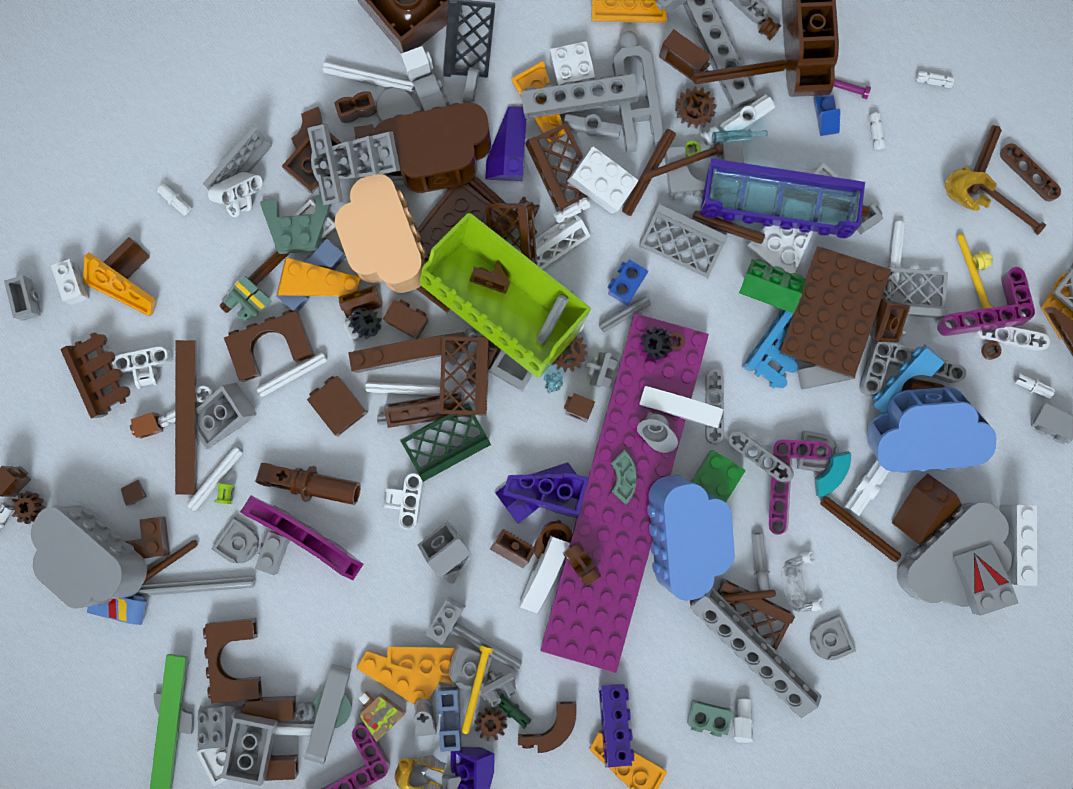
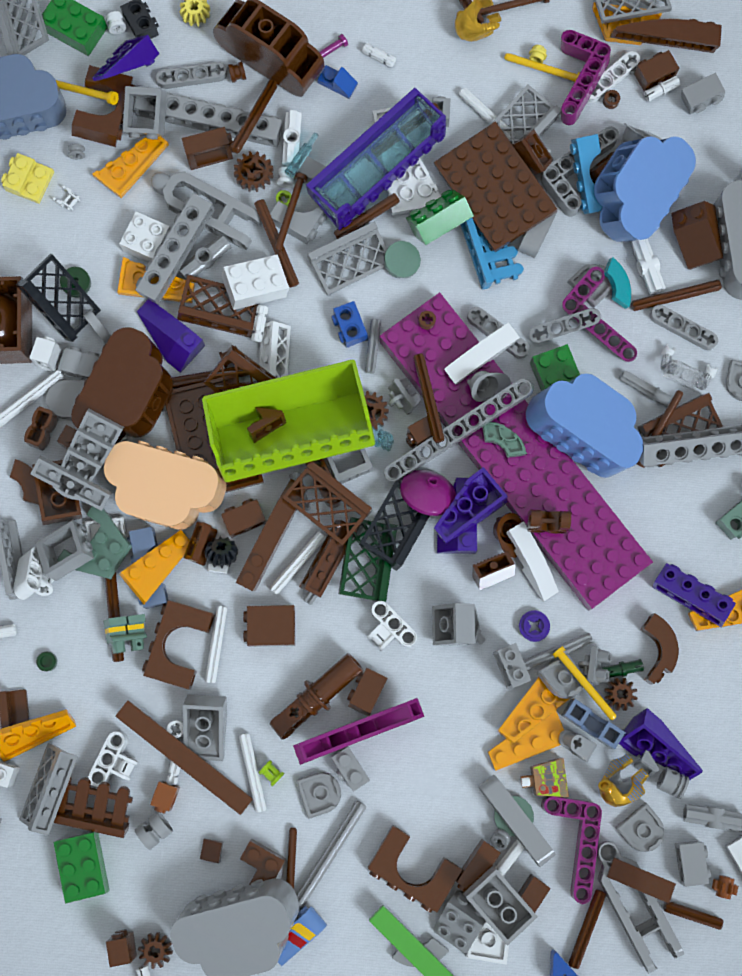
camera: 55 degrees left, 5 degrees down
(47, 403) = (81, 867): none -> green brick
(83, 333) = (50, 795): none -> light grey fence
(114, 437) = (151, 832): none -> light grey wheel
(182, 255) = (46, 661): none -> dark green tile
(260, 192) = (47, 556): none -> light grey window
(341, 520) = (367, 692): none -> reddish brown brick
(487, 620) = (534, 616): none -> dark purple gear
(493, 461) = (409, 537): none -> black fence
(502, 44) = (78, 274): none -> dark green piece
(529, 451) = (427, 492): none -> magenta dish
(552, 319) = (337, 398): light grey axle -> none
(611, 436) = (468, 429): none -> light grey beam
(612, 389) = (428, 397): none -> reddish brown axle
(661, 348) = (424, 331): black gear -> none
(715, 282) = (402, 259): none -> sand green tile
(839, 555) = (684, 325): none -> light grey beam
(975, 395) = (634, 134): none -> light grey piece
(1047, 369) = (656, 70): none -> reddish brown brick

